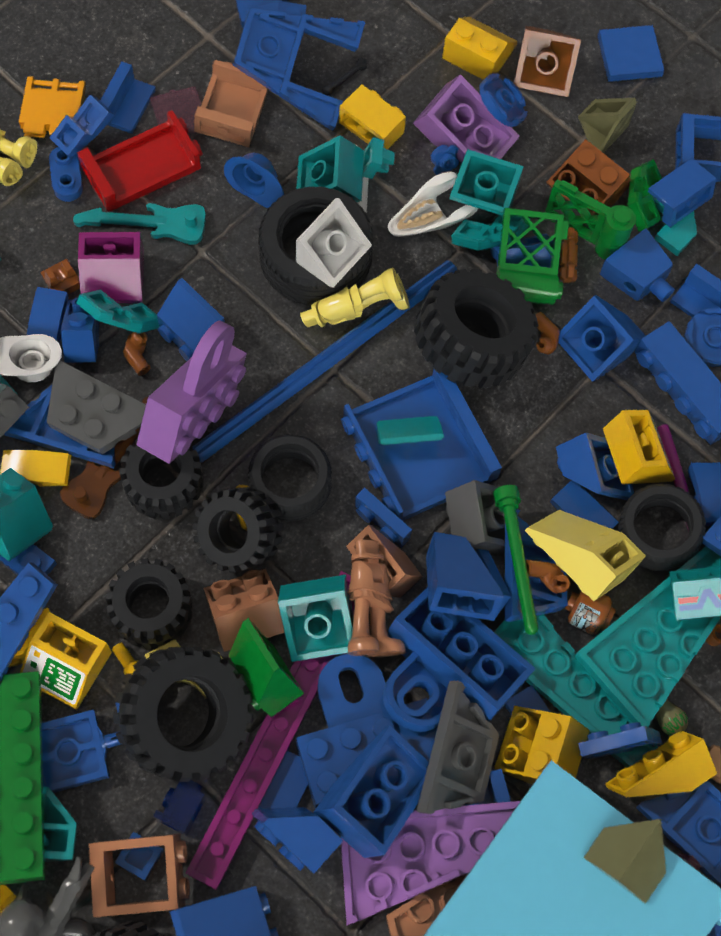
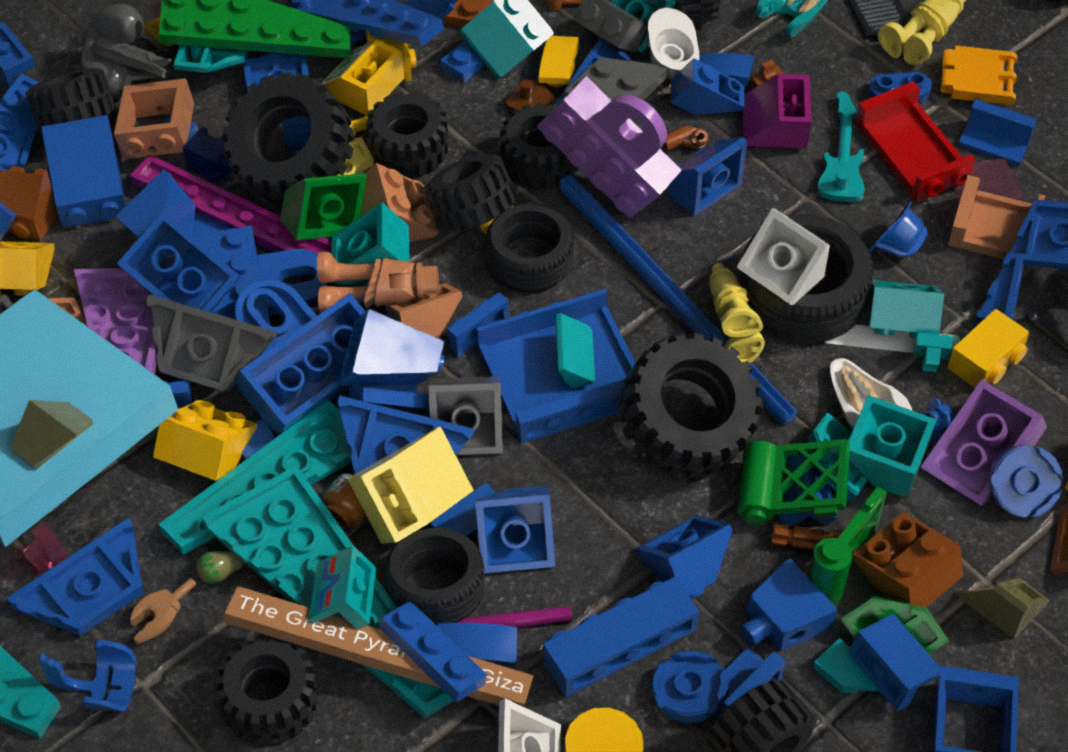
camera: 100 degrees right, 15 degrees down
(80, 130) = (945, 87): blue slope -> none
(104, 309) = (720, 102): teal tile -> none
(507, 499) = (475, 417): green piece -> none
(549, 334) = (698, 505): dark orange arm -> none
(549, 574) = (391, 442): dark orange arm -> none
(630, 737) = (191, 493): blue wing -> none
(637, 448) = (534, 569): yellow slope -> none
(672, 768) = (154, 541): yellow slope -> none

